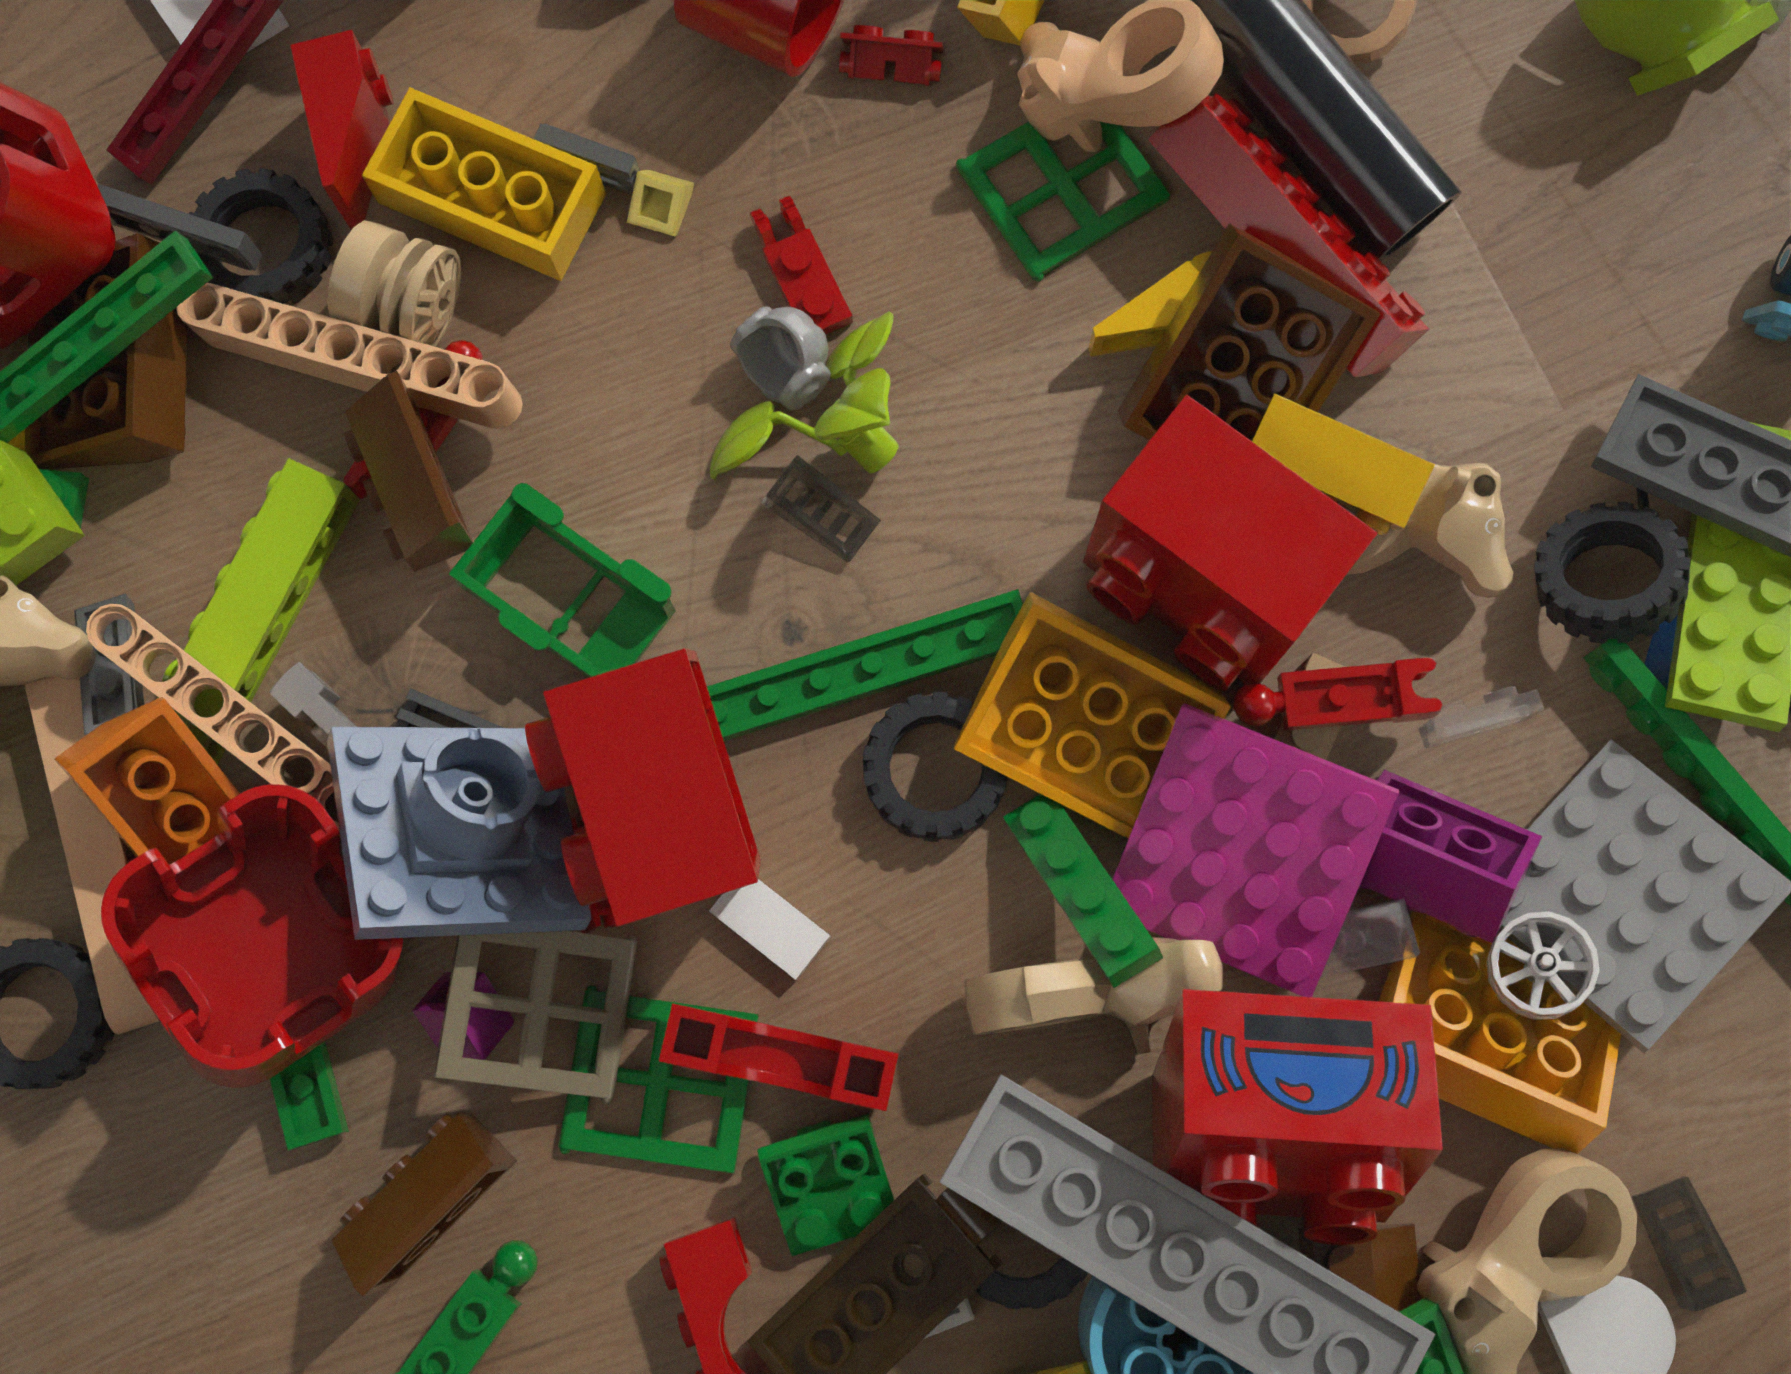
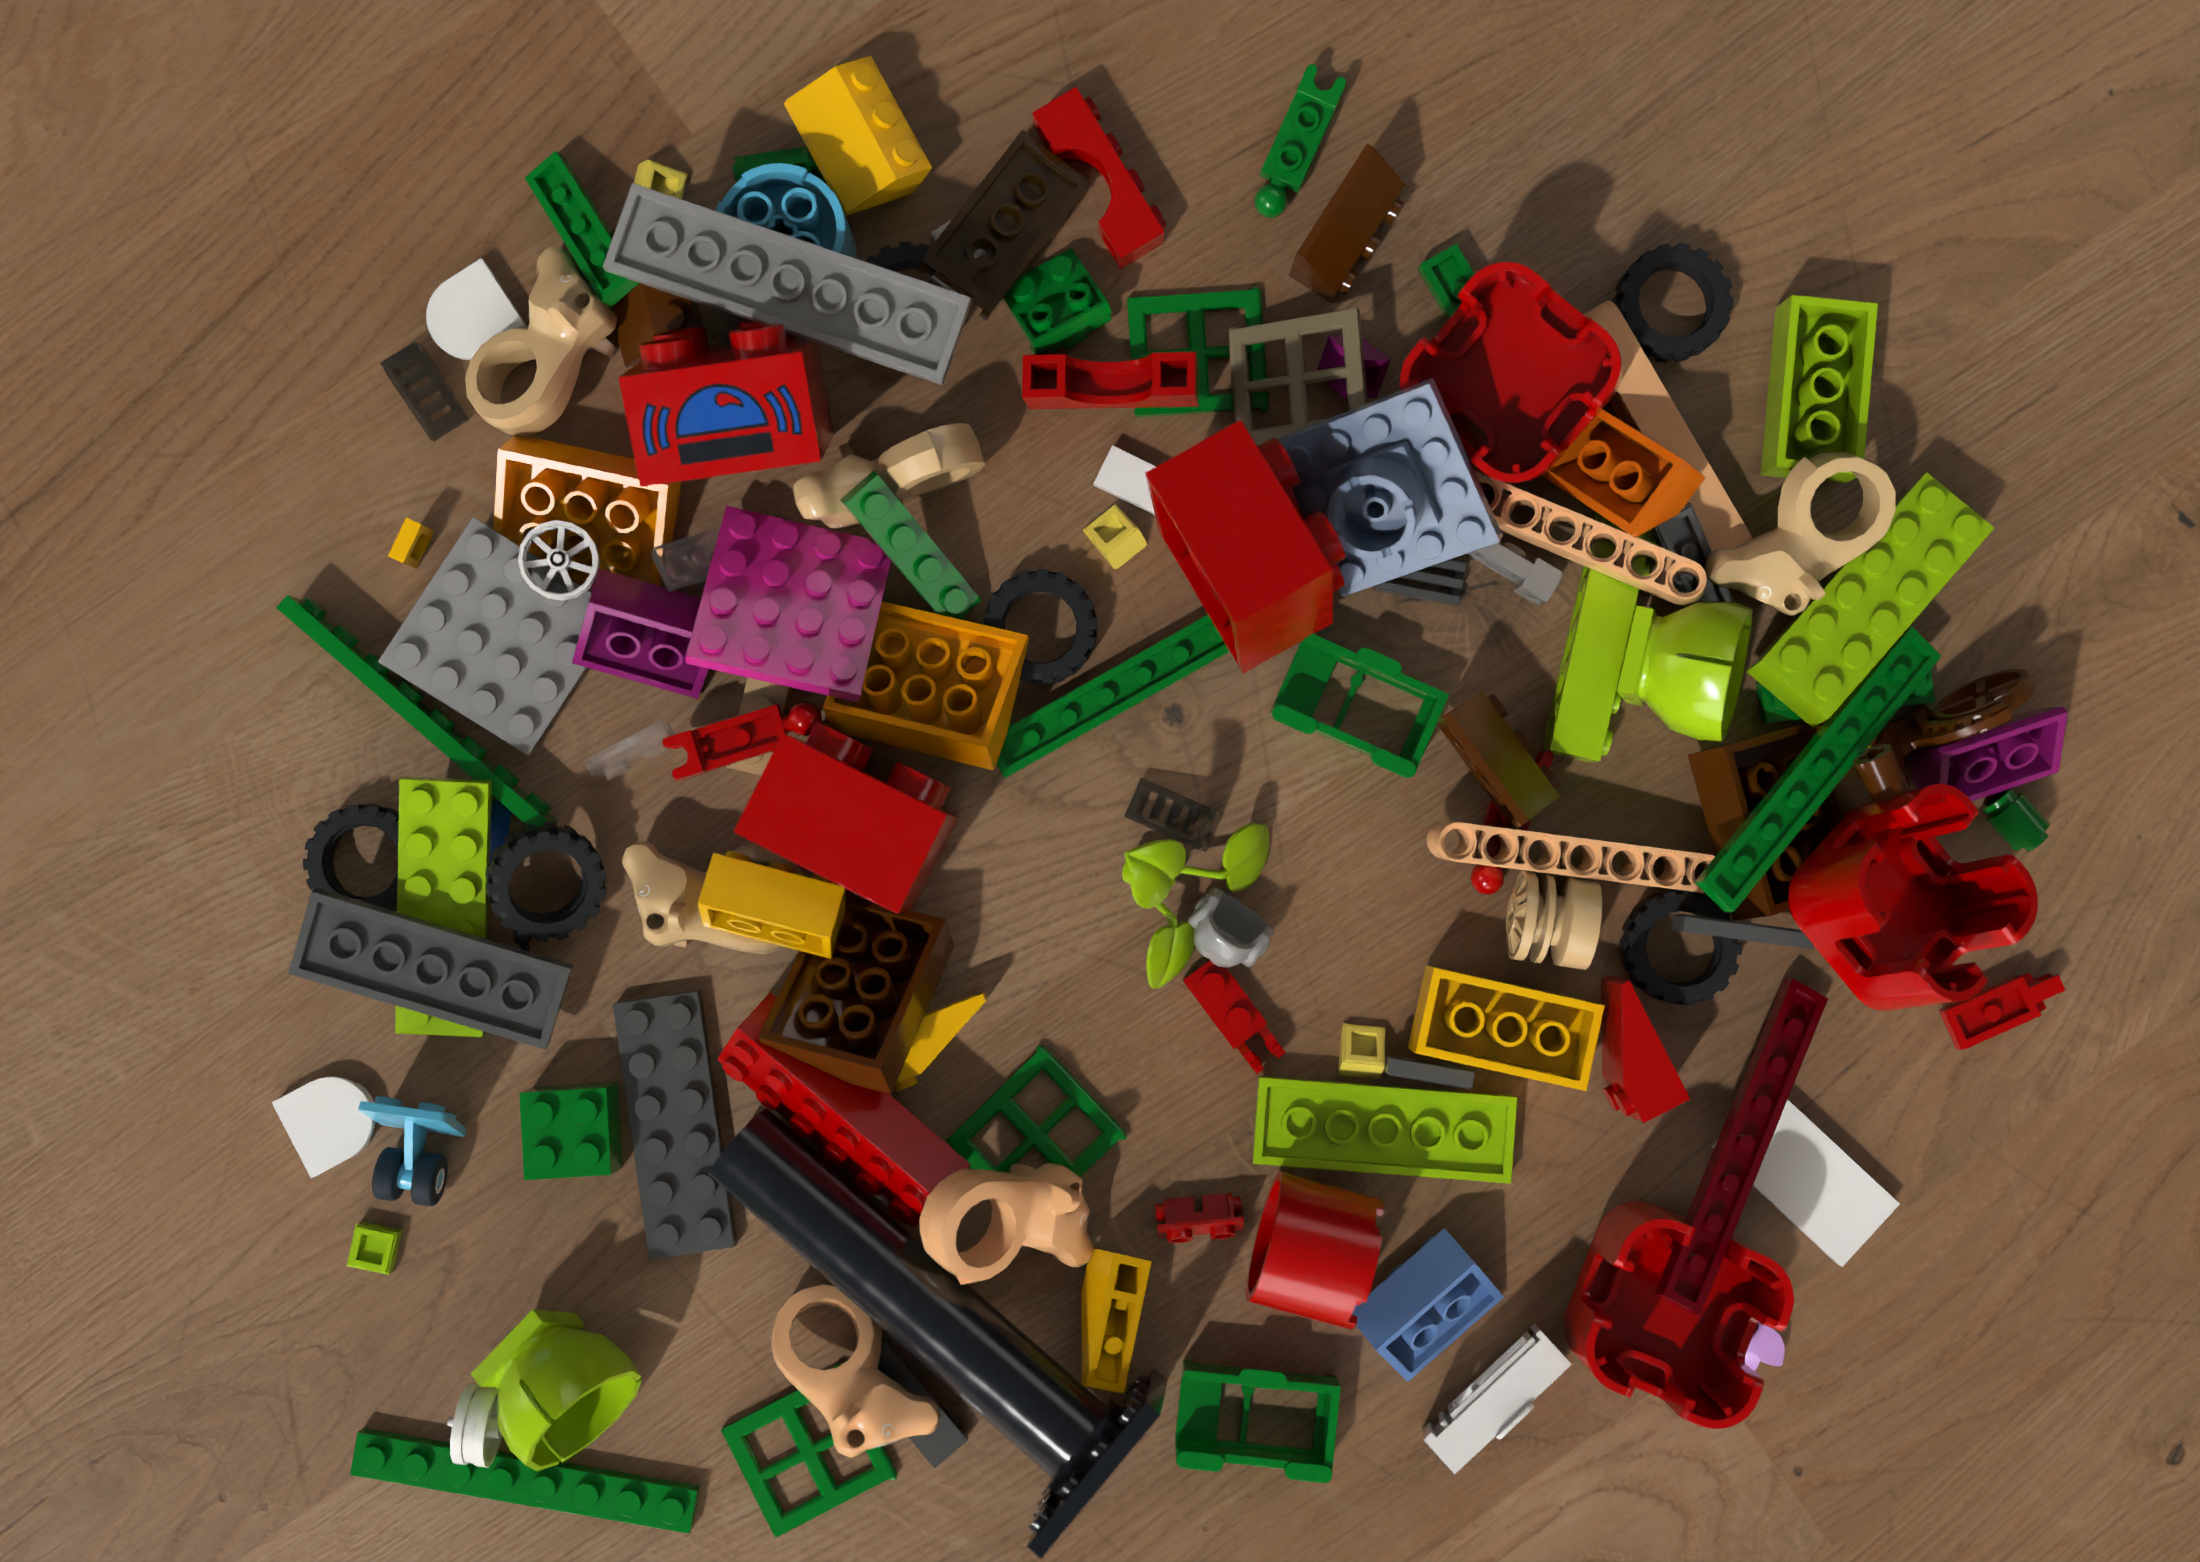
camera: 165 degrees right, 10 degrees up
(151, 542) = (1688, 665): none -> lime plate
(657, 108) = (1384, 1129): none -> lime plate
(817, 865) = (1115, 536): none -> light yellow slope
(1491, 279) = (674, 1124): none -> dark grey plate
(1618, 284) = (571, 1130): none -> green brick
(1731, 1040) = (411, 543): none -> yellow tile

